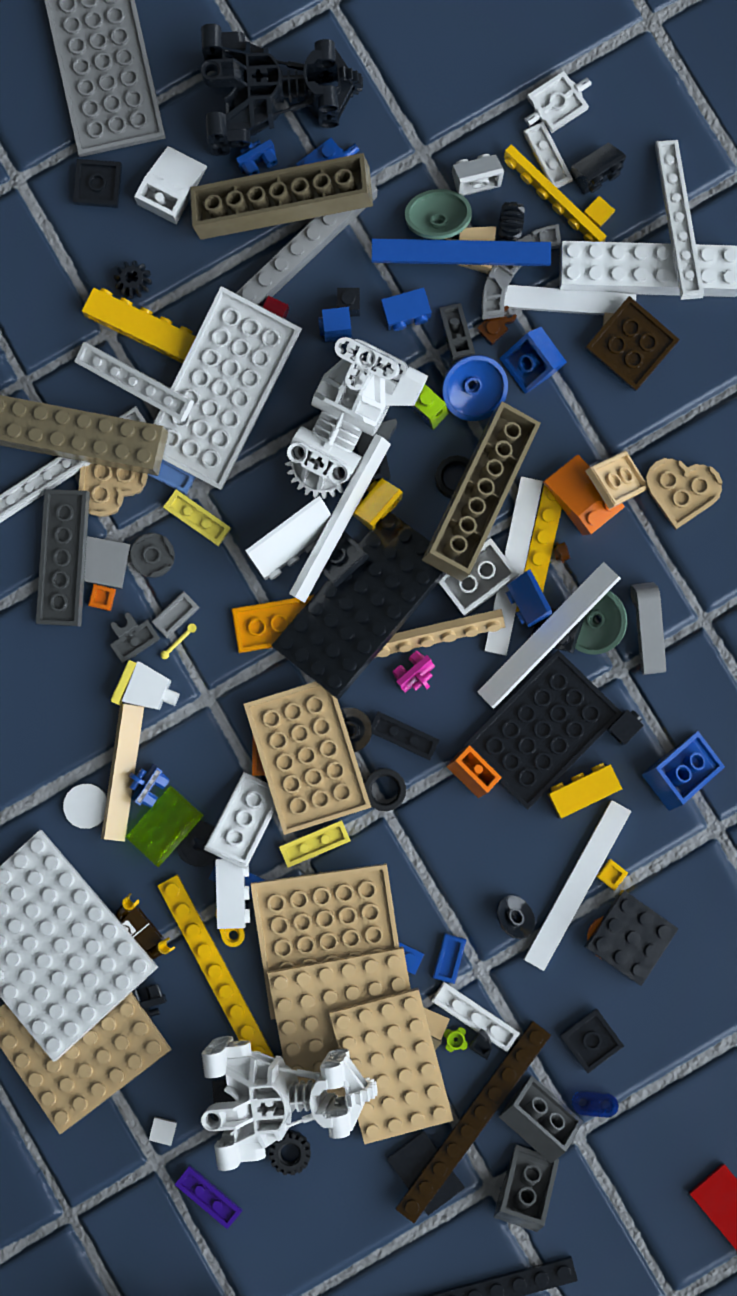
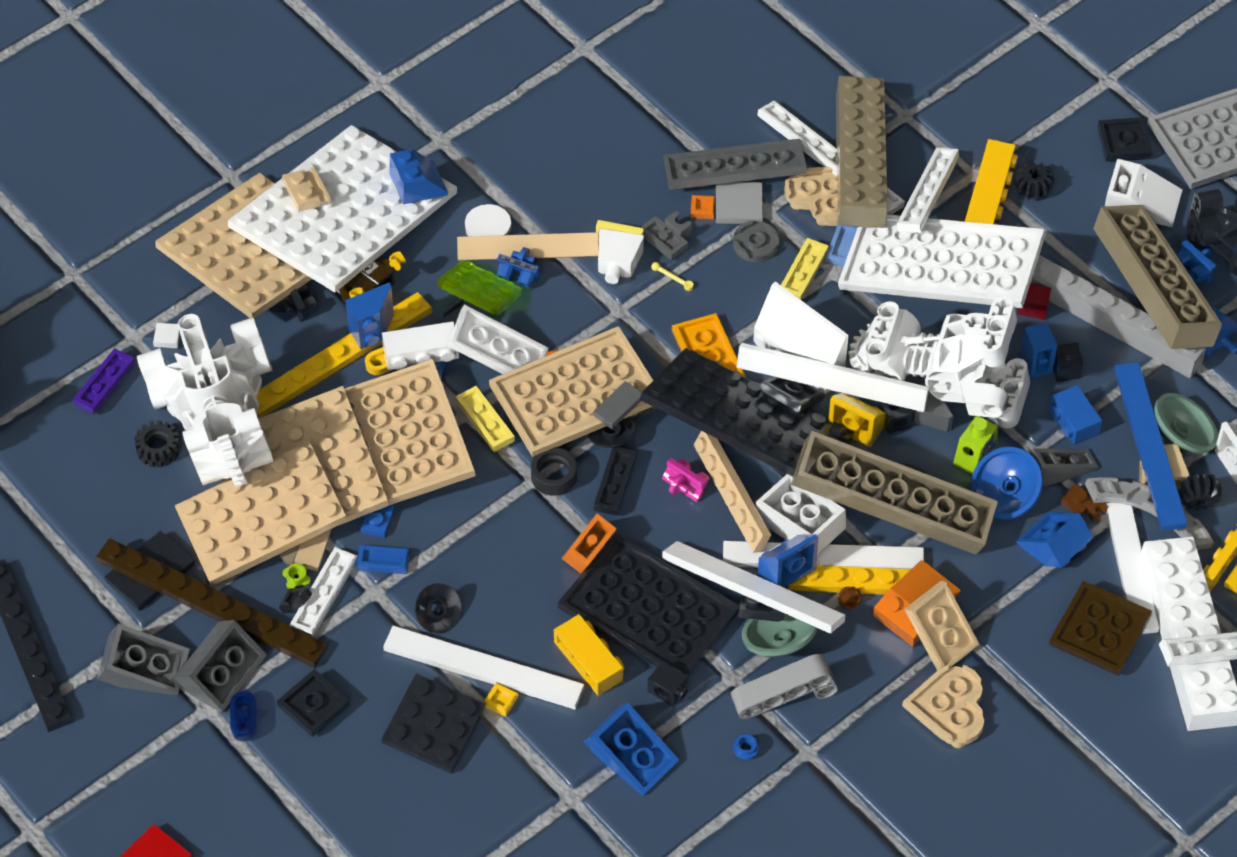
camera: 80 degrees right, 30 degrees down
(28, 980) = (306, 189): none -> tan plate
(31, 868) = (415, 177): none -> blue slope
(175, 614) = (699, 269): light grey tile -> none
(196, 937) = (370, 315): none -> blue slope
(336, 720) = (618, 405): none -> dark grey tile
(701, 671) = (749, 741): none -> blue plate

